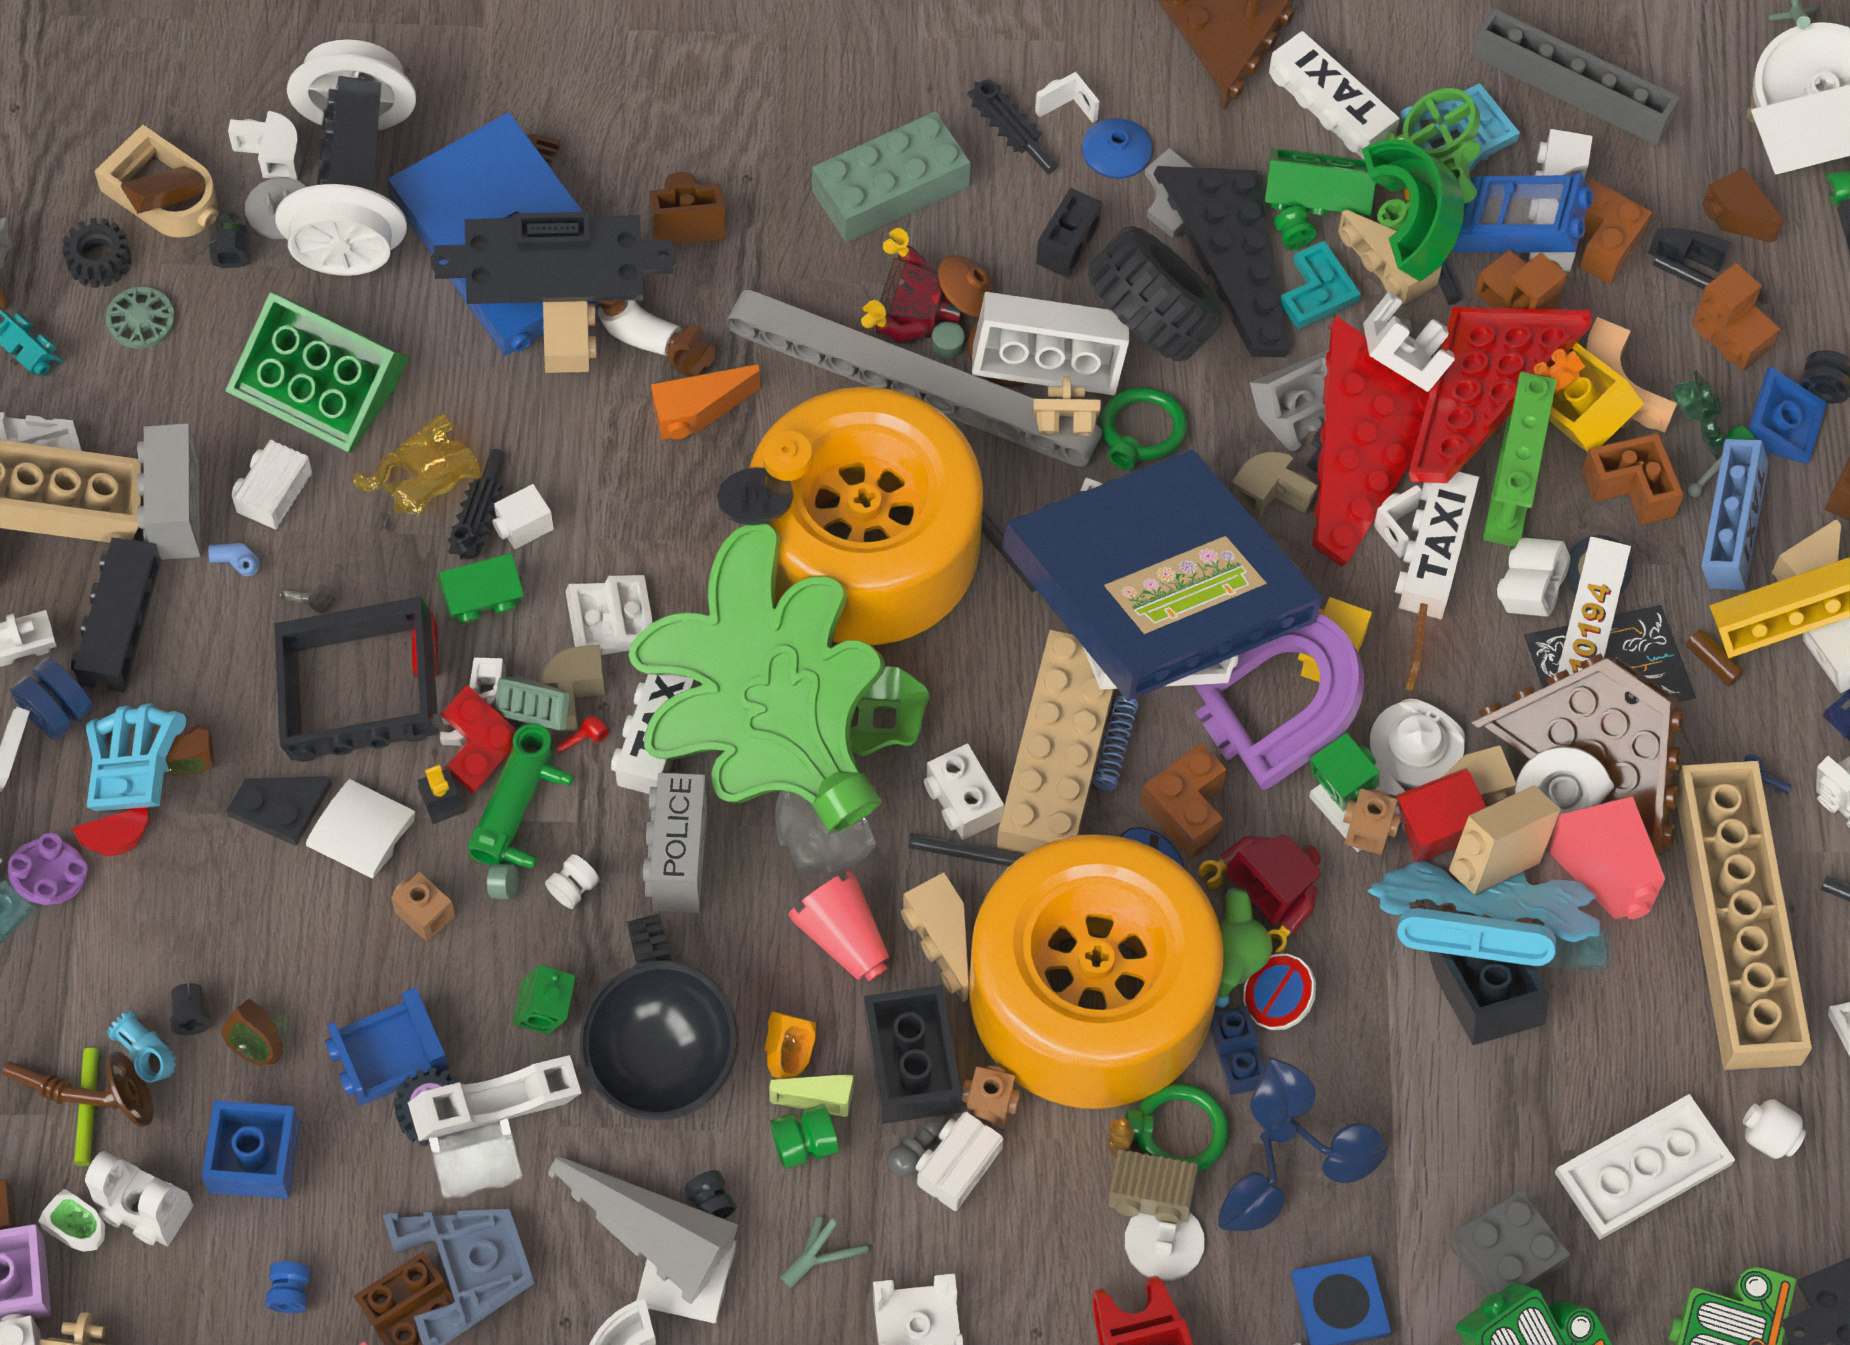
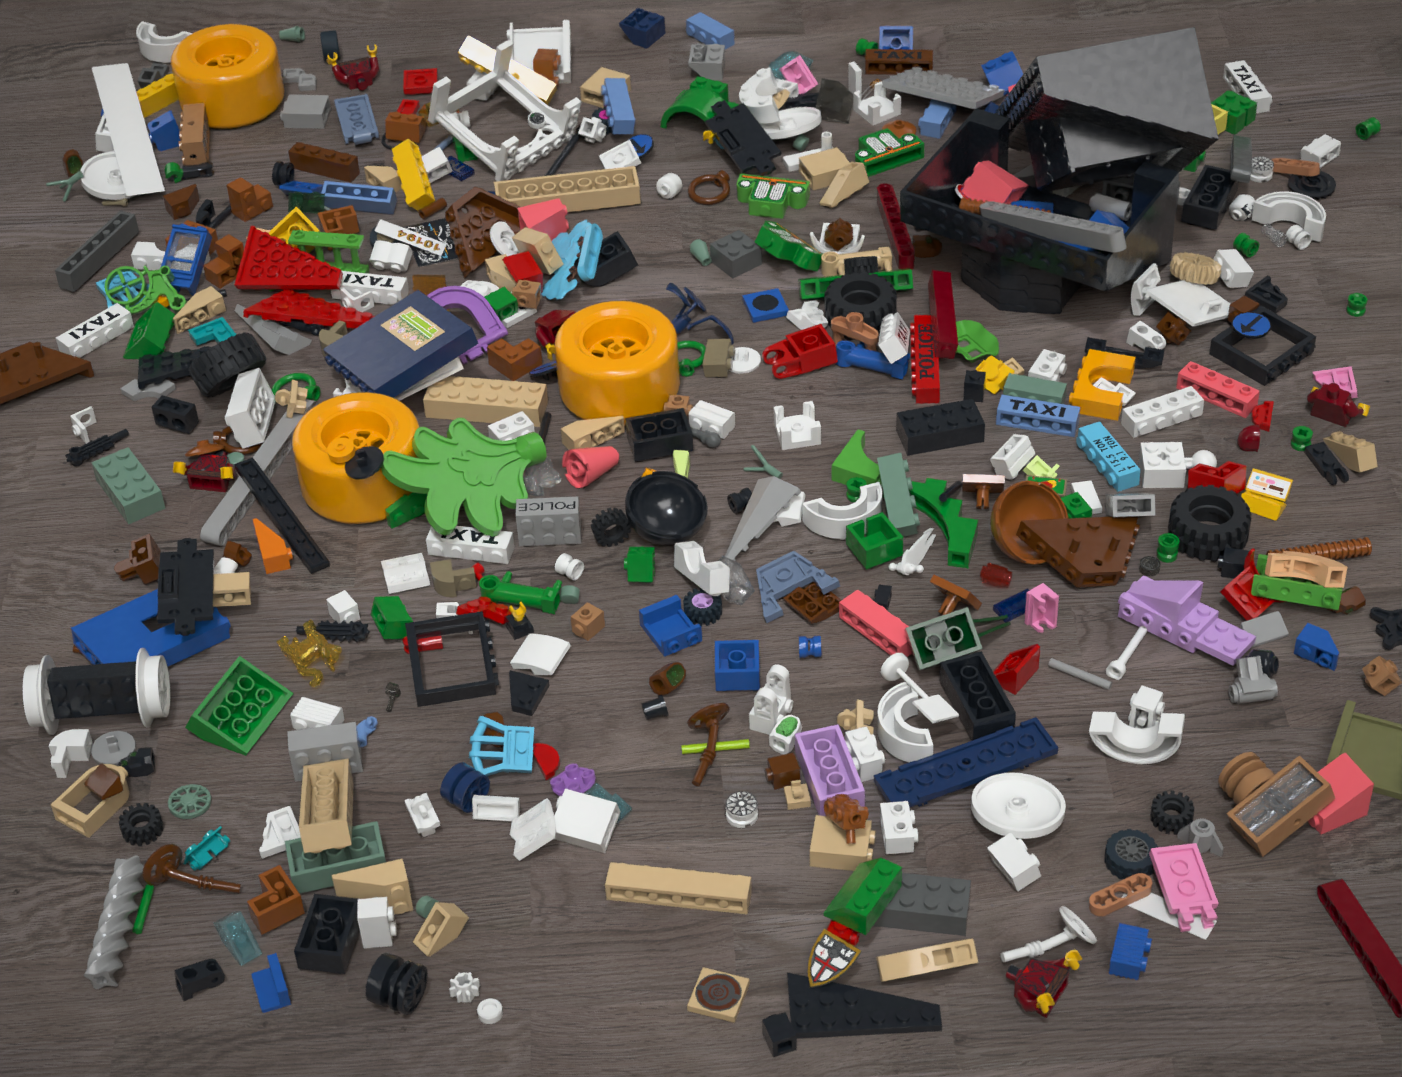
camera: 90 degrees left, 20 degrees down
(116, 614) = (402, 773): black brick -> none
(141, 1044) = (678, 718): medium azure connector -> none
(529, 702) = (456, 587): sand green slope -> none
(751, 422) = (282, 515): none -> black tile
(804, 1136) = (705, 469): green wheel -> none
(1113, 158) = (115, 411): blue dish -> none
(1120, 1136) = (695, 366): pearl gold piece -> none
(1295, 227) = (178, 341): green wheel -> none
(1407, 356) = (259, 289): white panel -> none
(1434, 207) = (178, 270): green brick -> none
(1533, 1177) = (700, 251): none -> sand green cone
(1565, 369) = (285, 232): orange piece -> none
(1644, 1166) = (689, 220): white plate -> none
(1804, 1243) = (719, 179): none -> reddish brown piece

